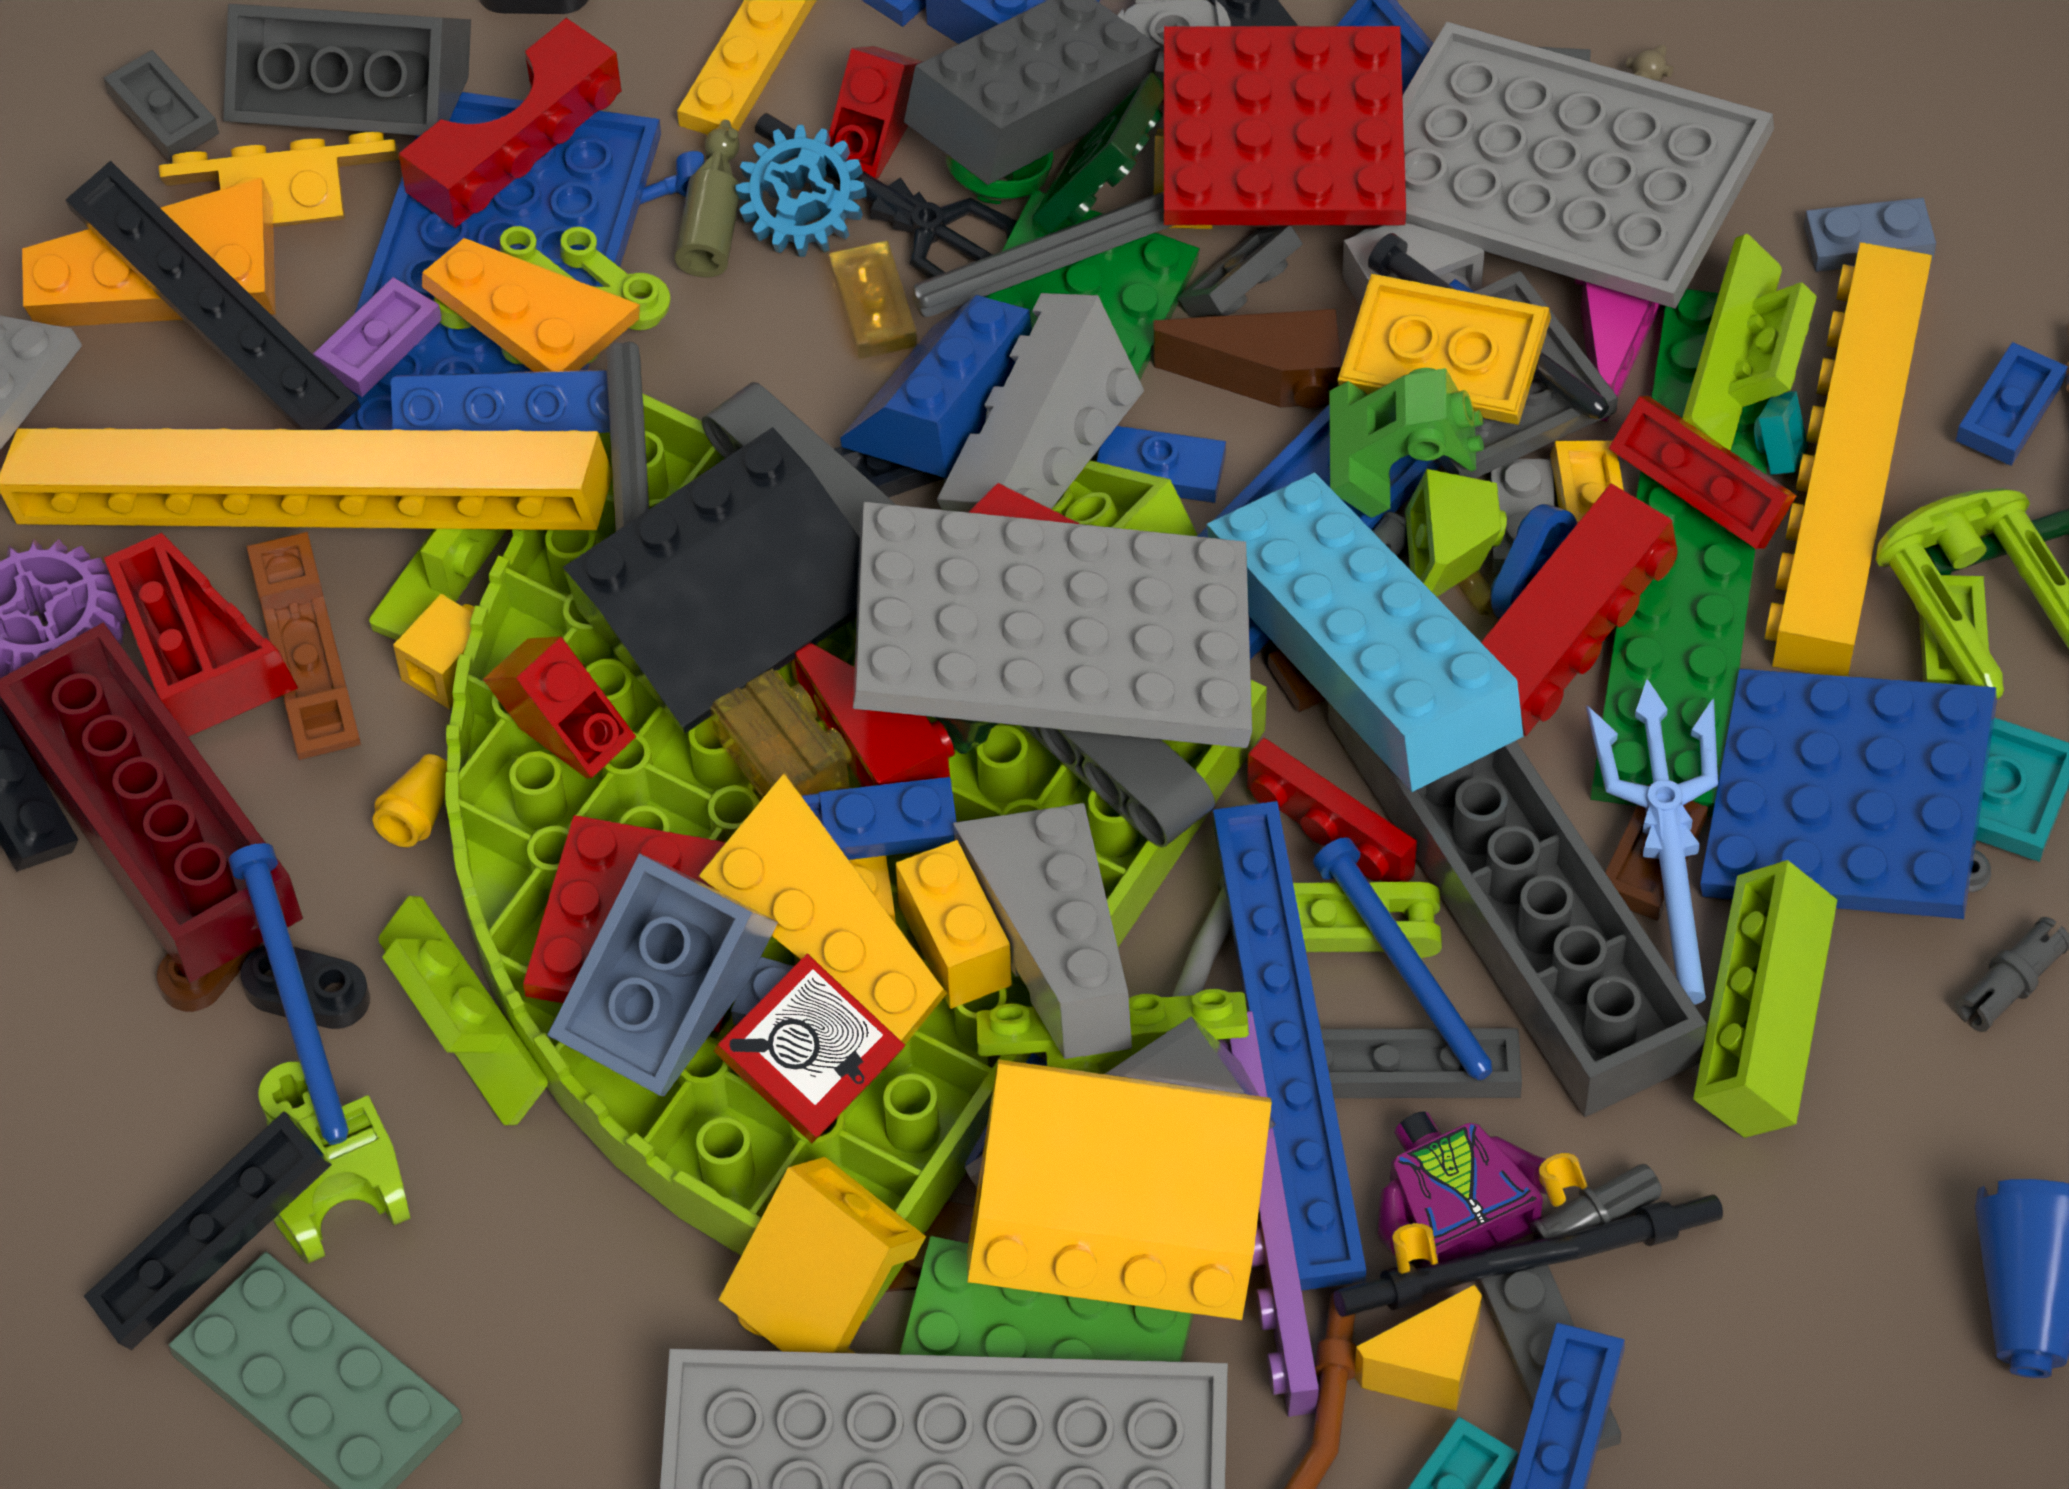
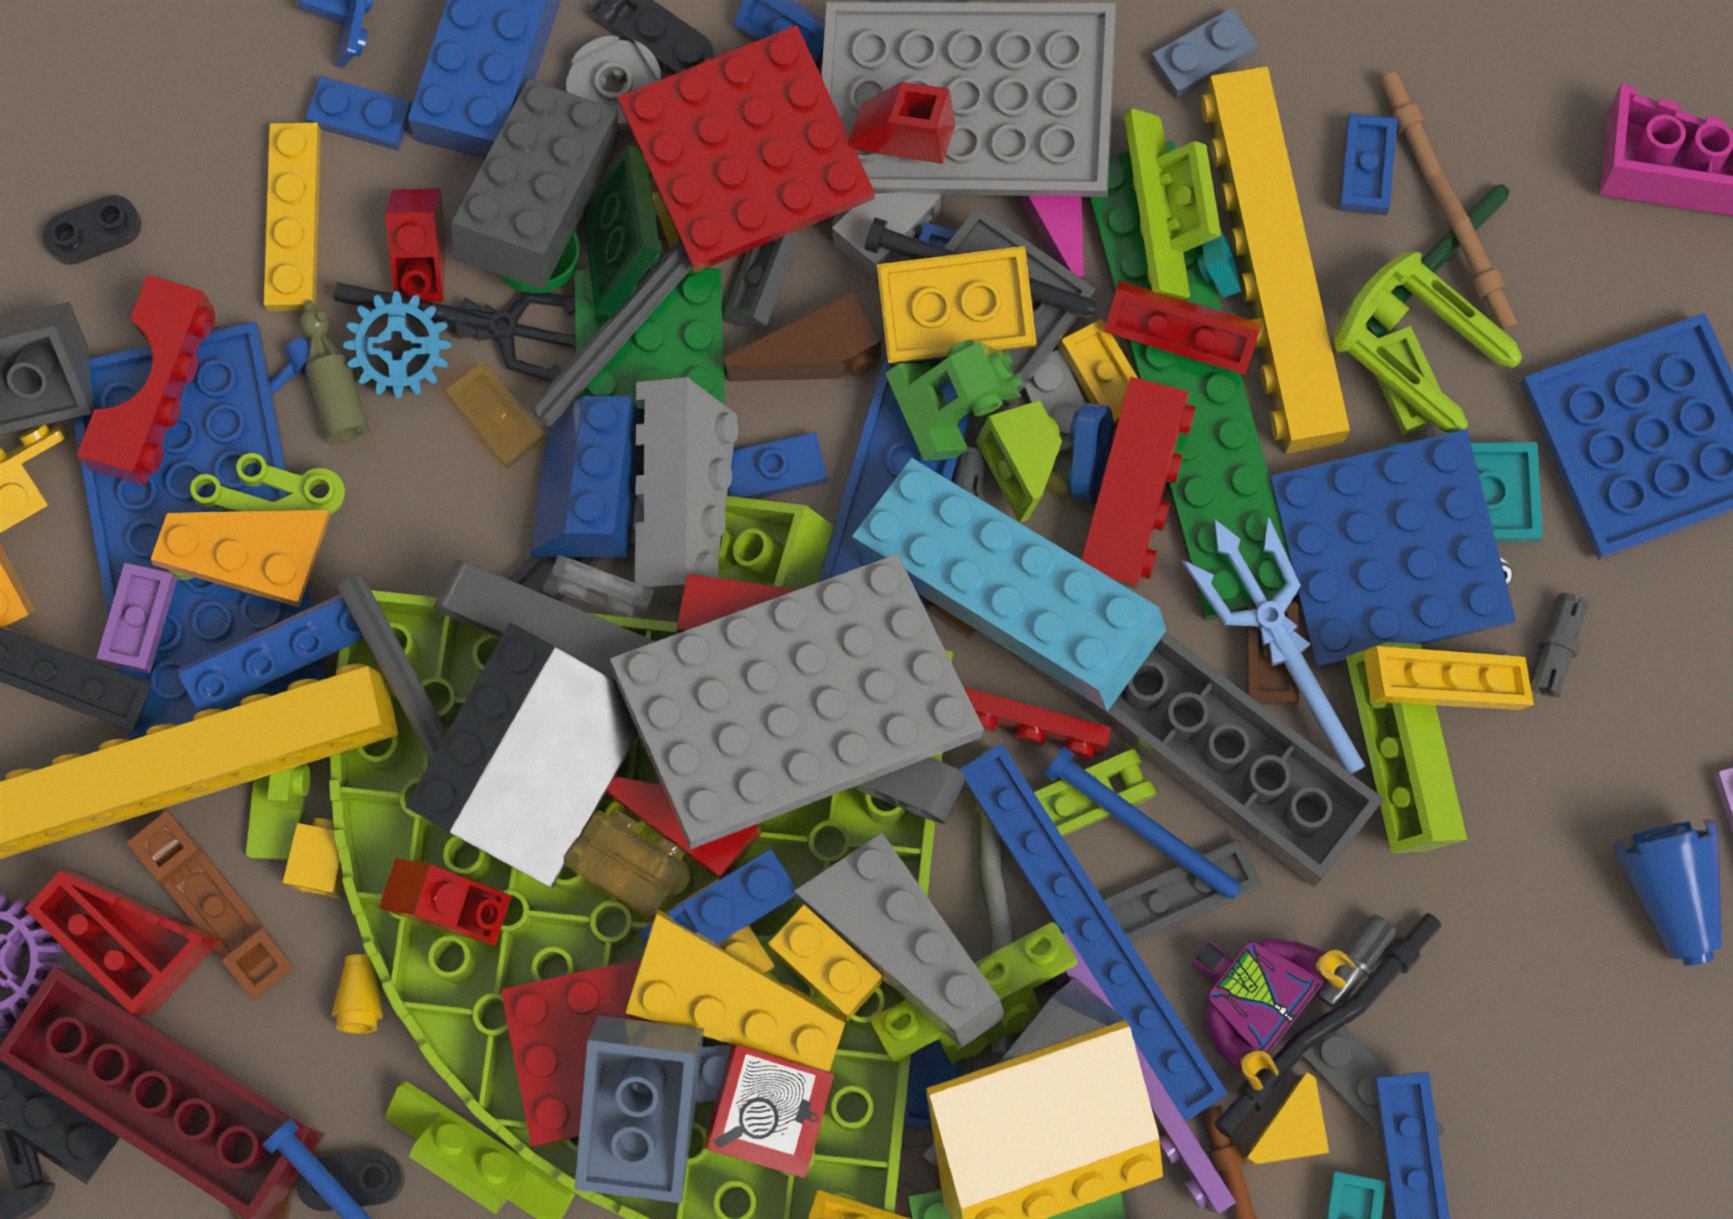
camera: 25 degrees left, 20 degrees up
(892, 468) = (597, 588): none -> clear plate
(1477, 149) = (906, 123): none -> red slope
(1848, 931) = (1447, 678): none -> yellow plate

